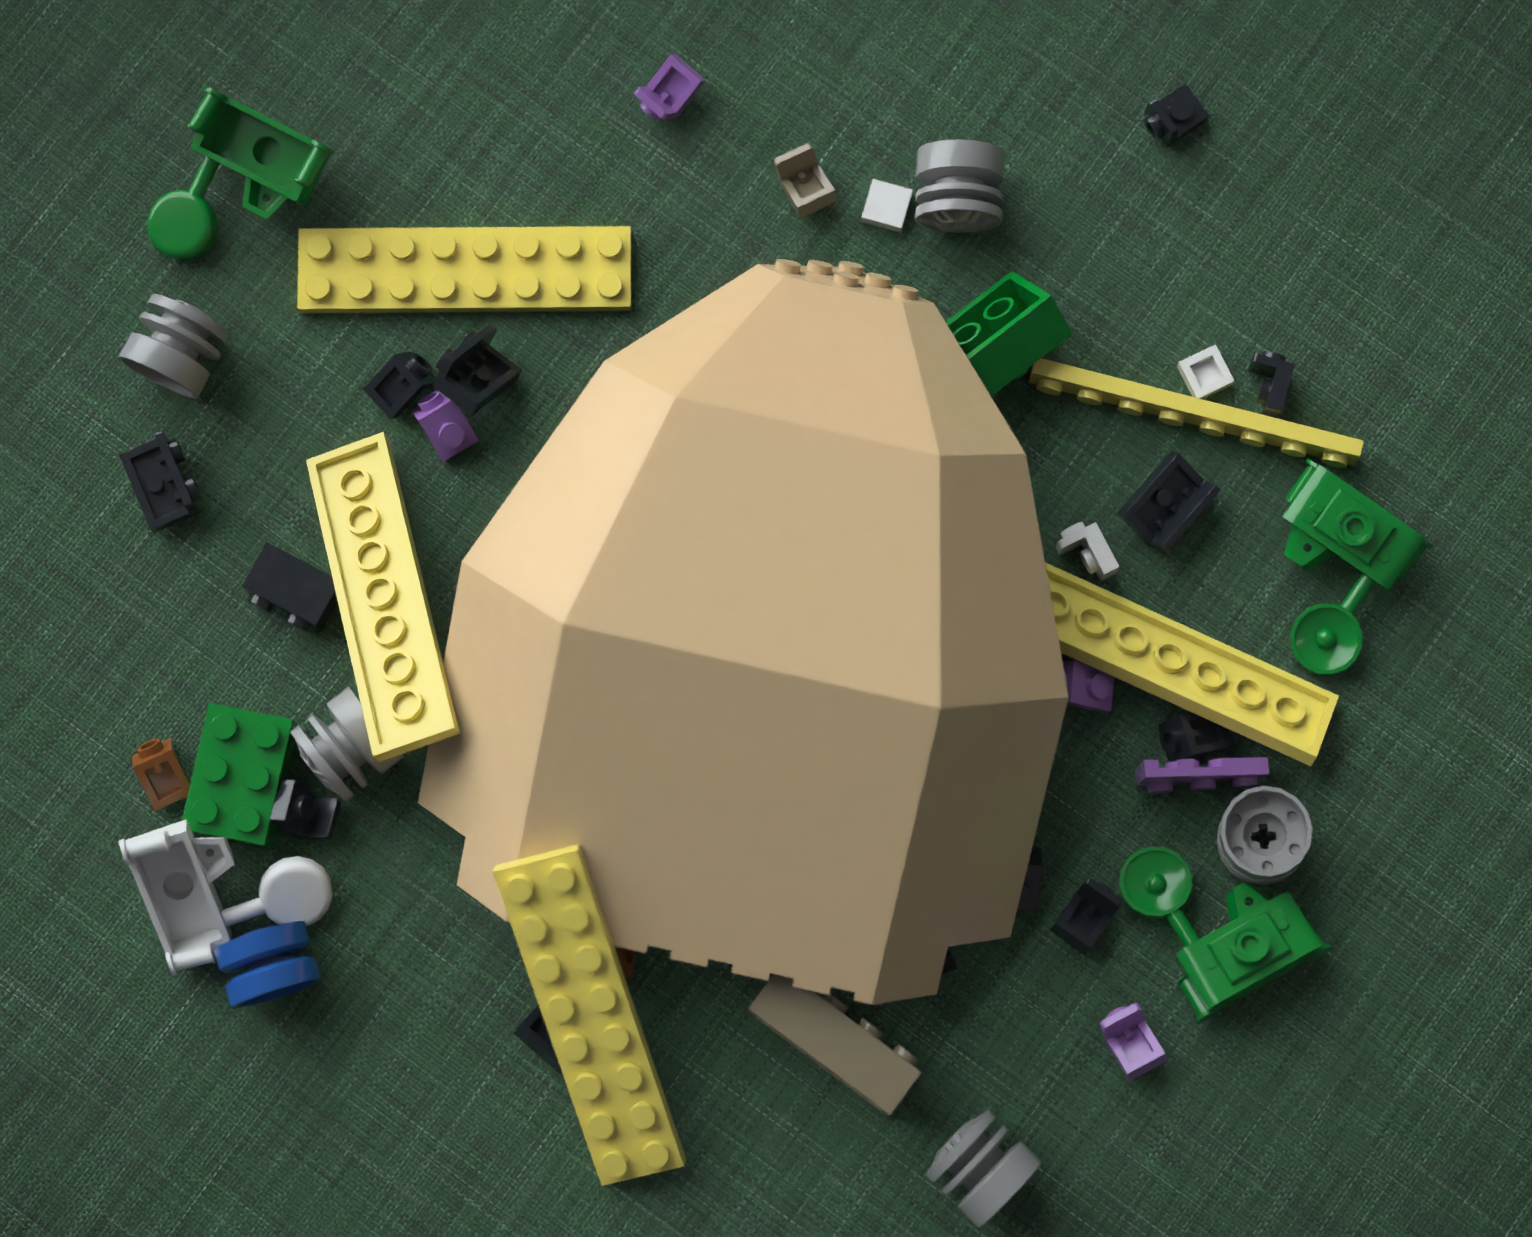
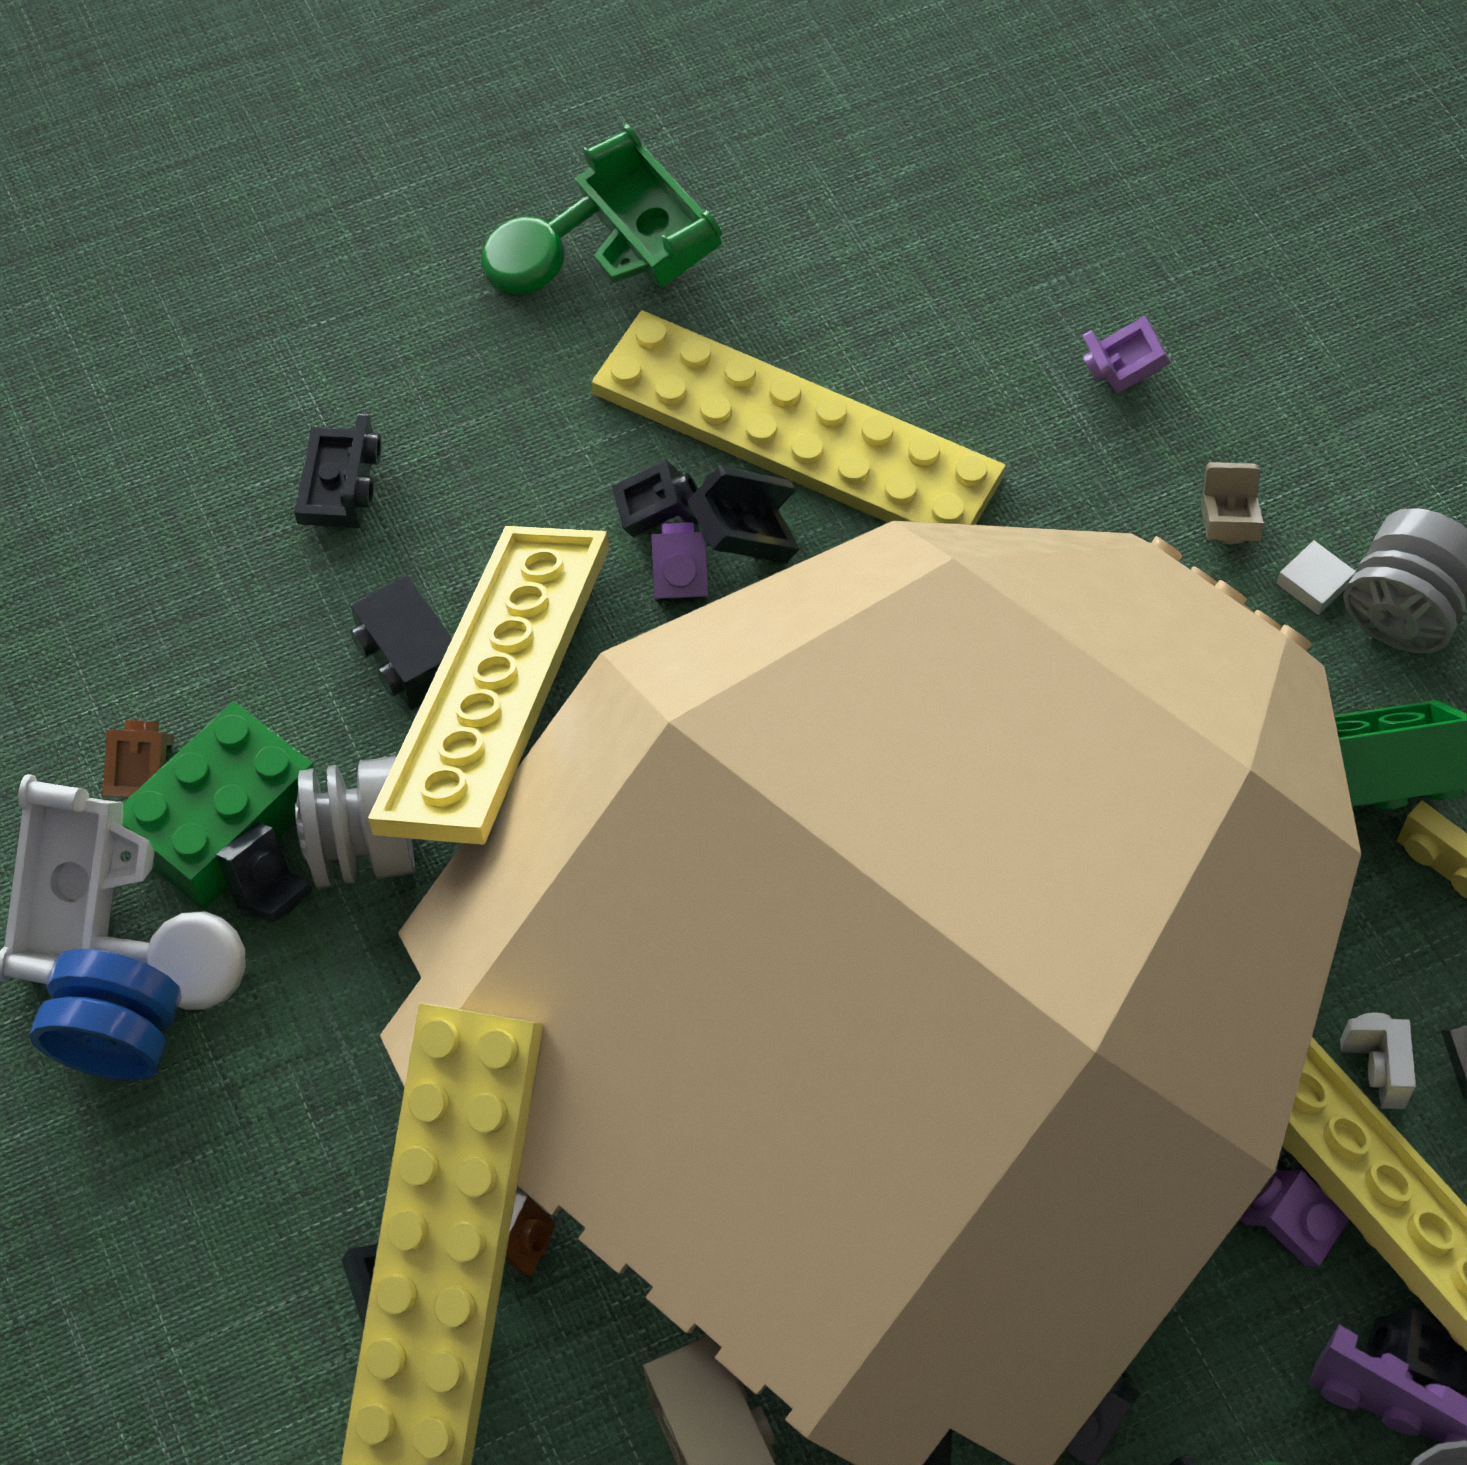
camera: 30 degrees right, 20 degrees down
(174, 346) = (436, 346): light grey wheel -> none

